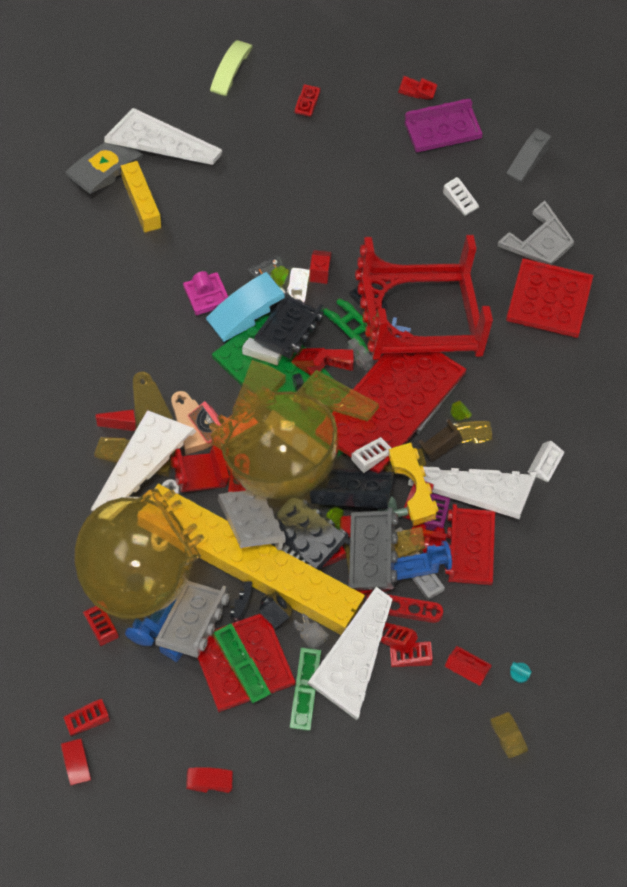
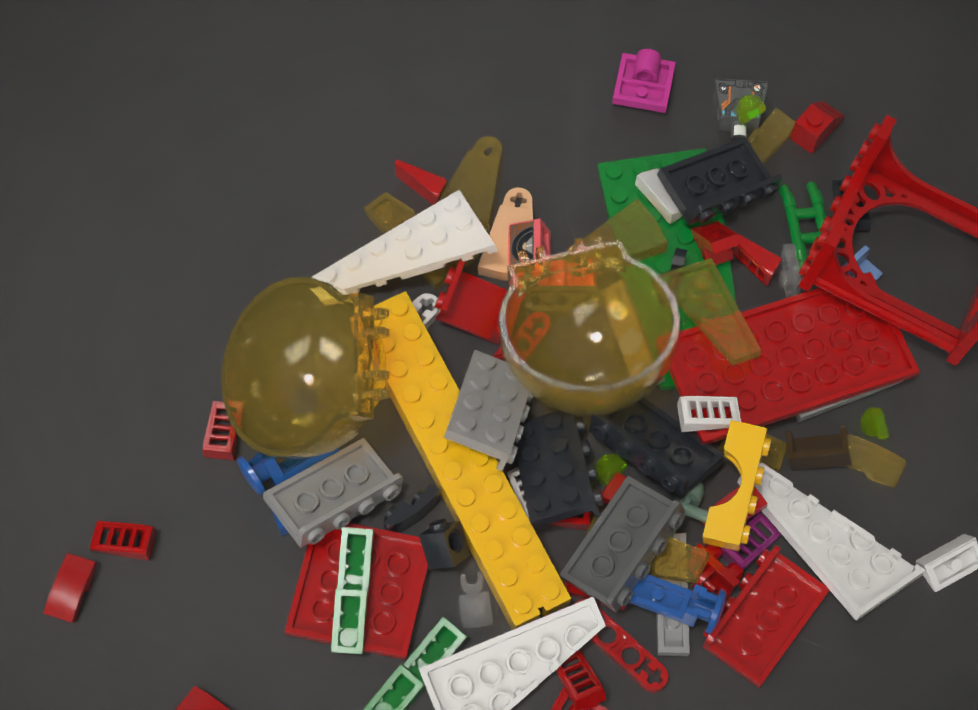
camera: 35 degrees right, 5 degrees up
(244, 306) = (678, 124): medium azure slope -> none

